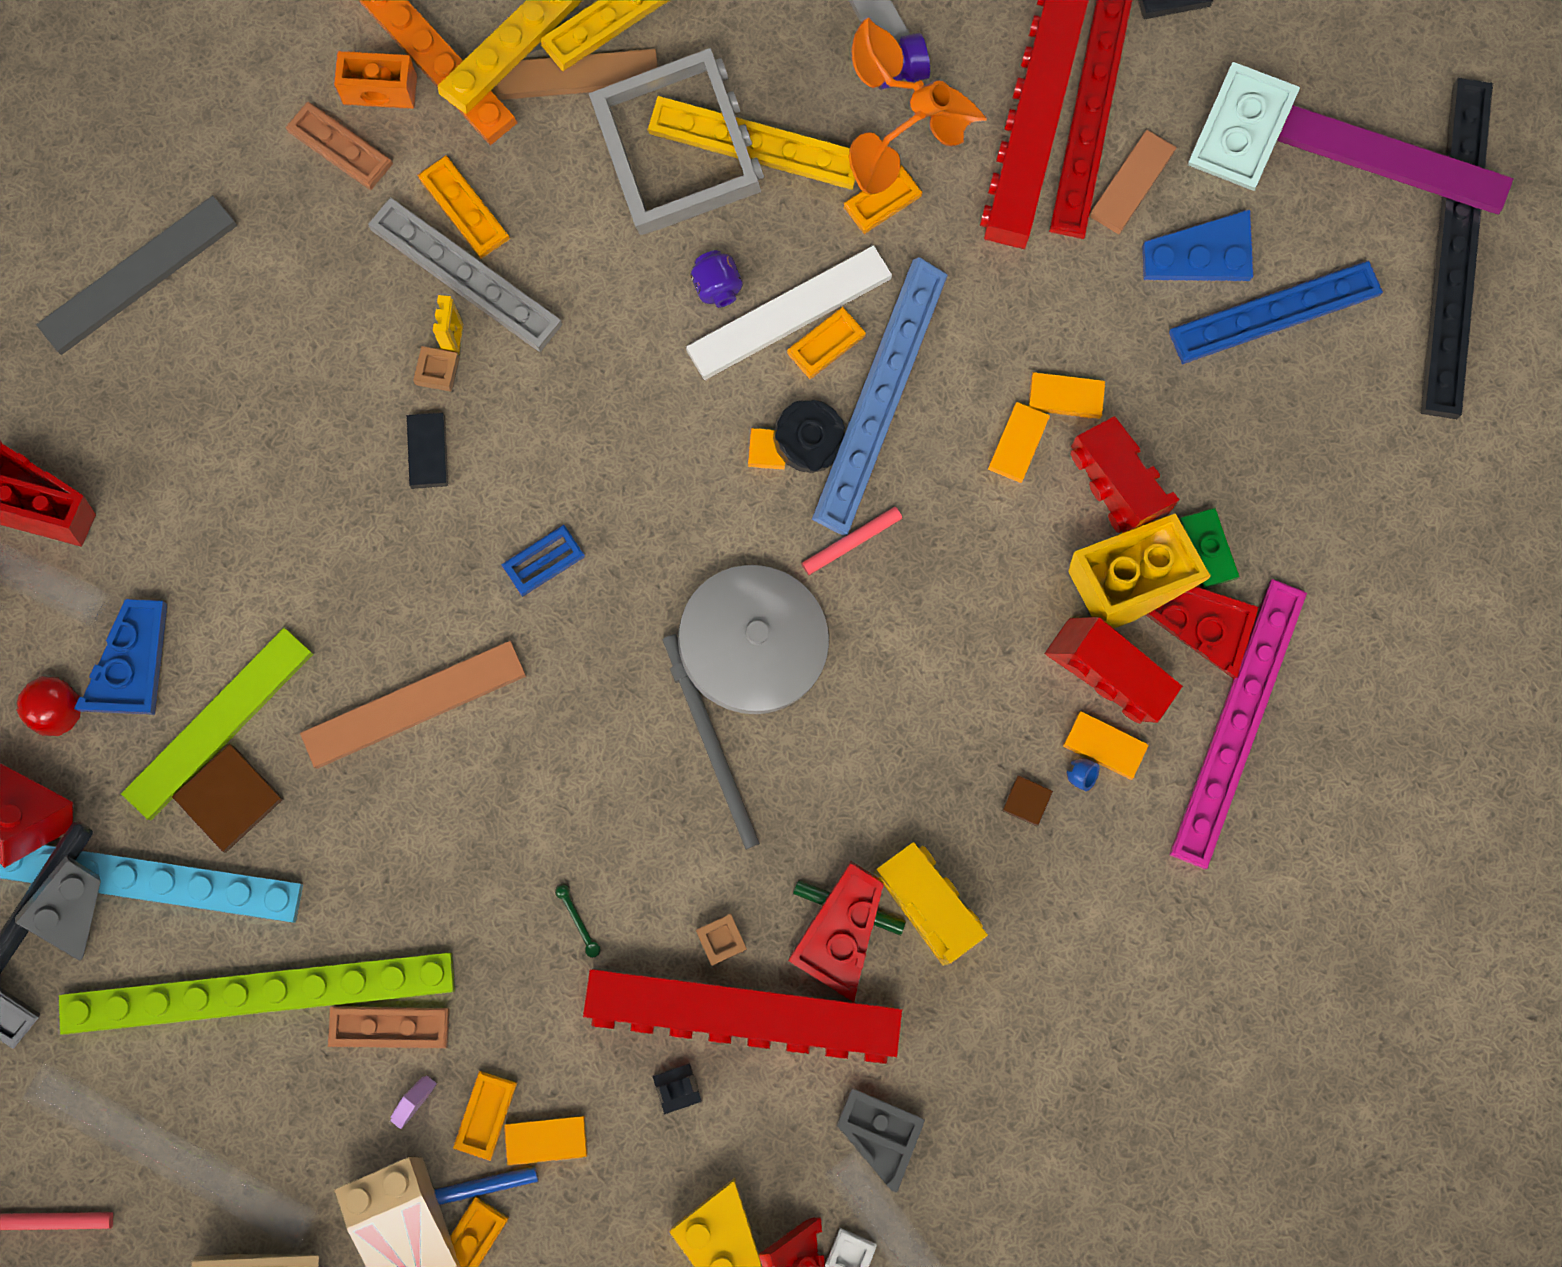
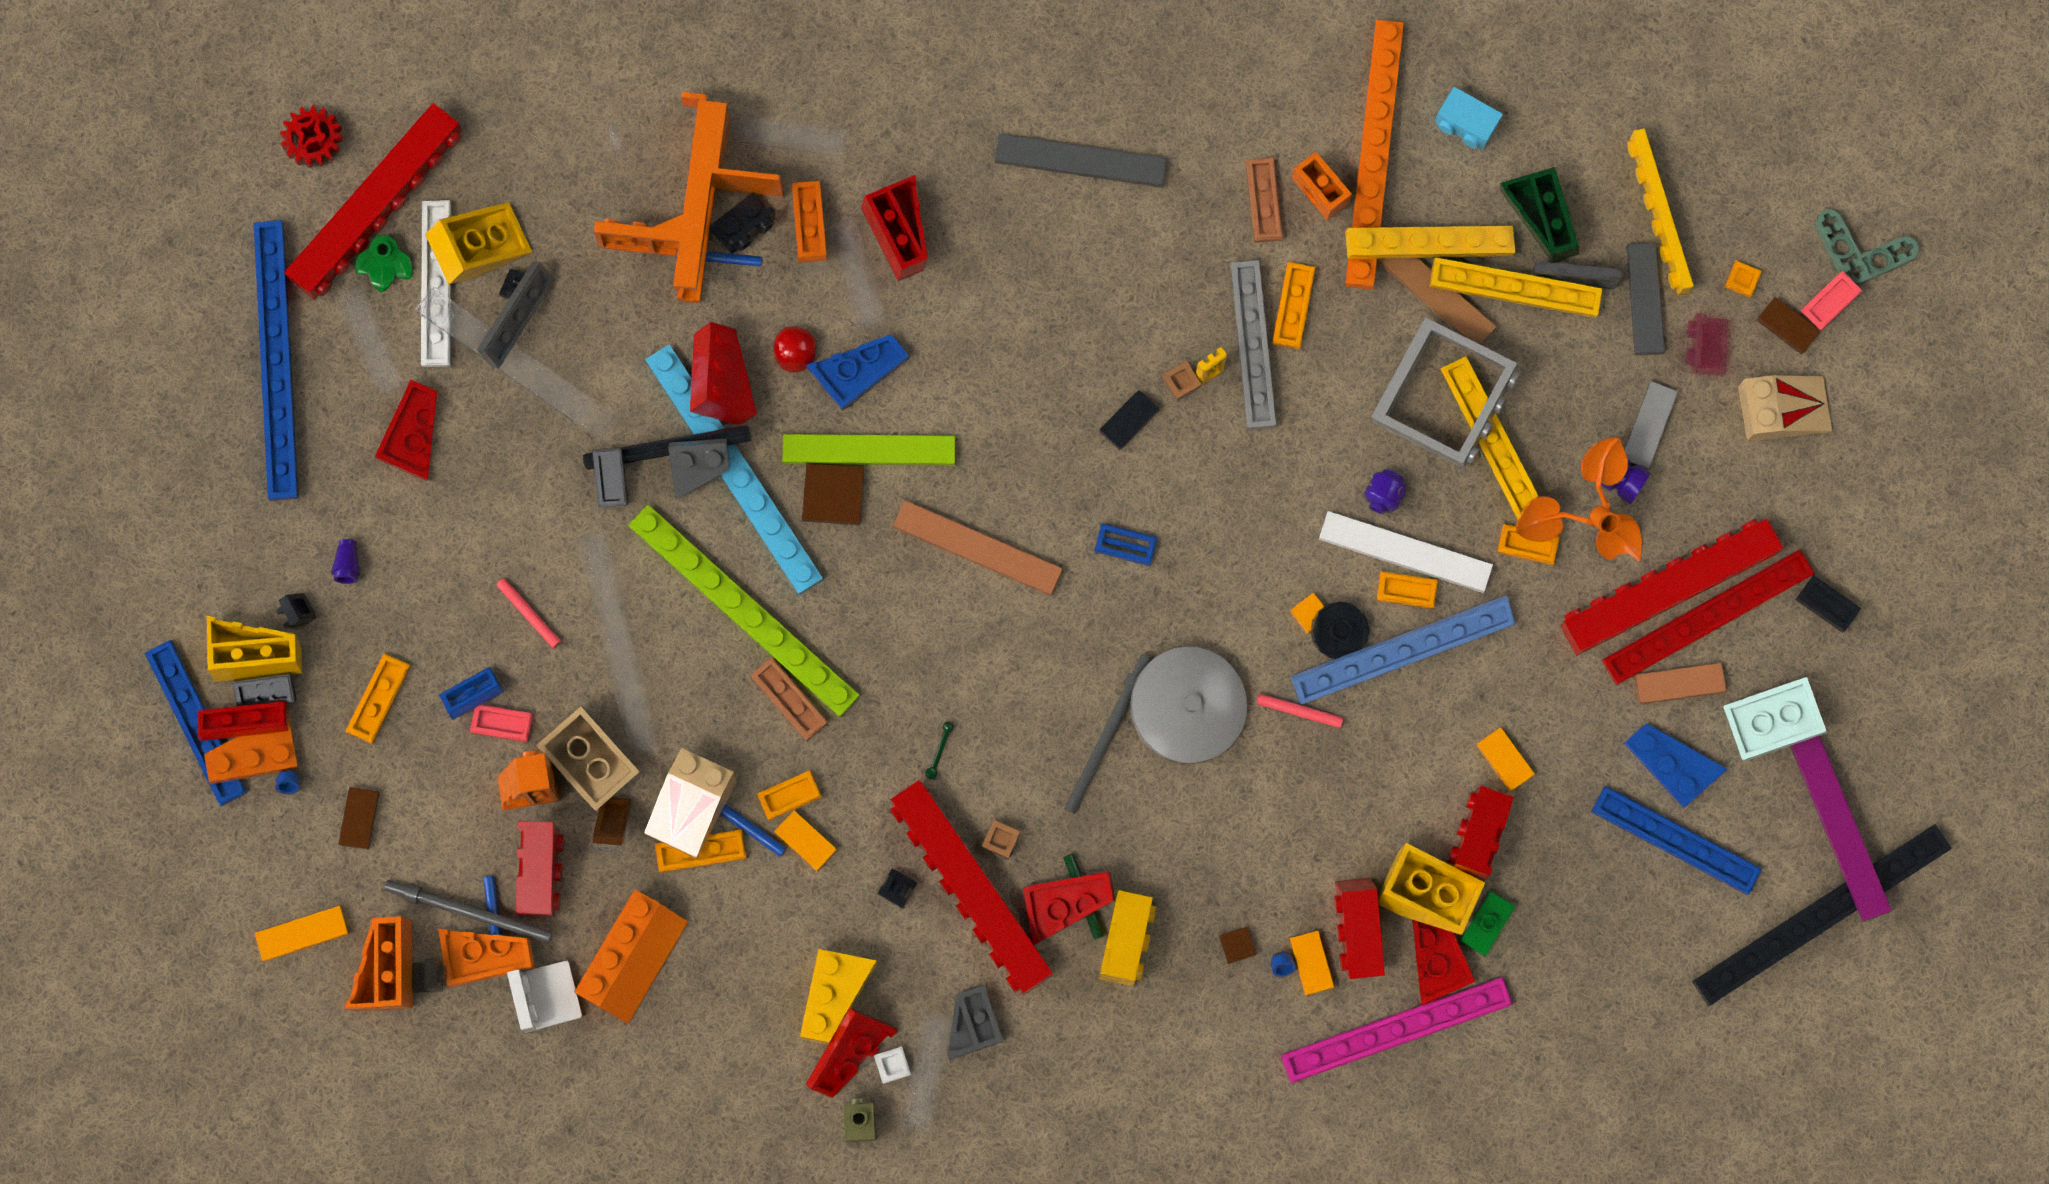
camera: 50 degrees right, 0 degrees up
(412, 1101) = (761, 748): lavender tile -> none
(1018, 442) = (1450, 756): light orange tile -> none

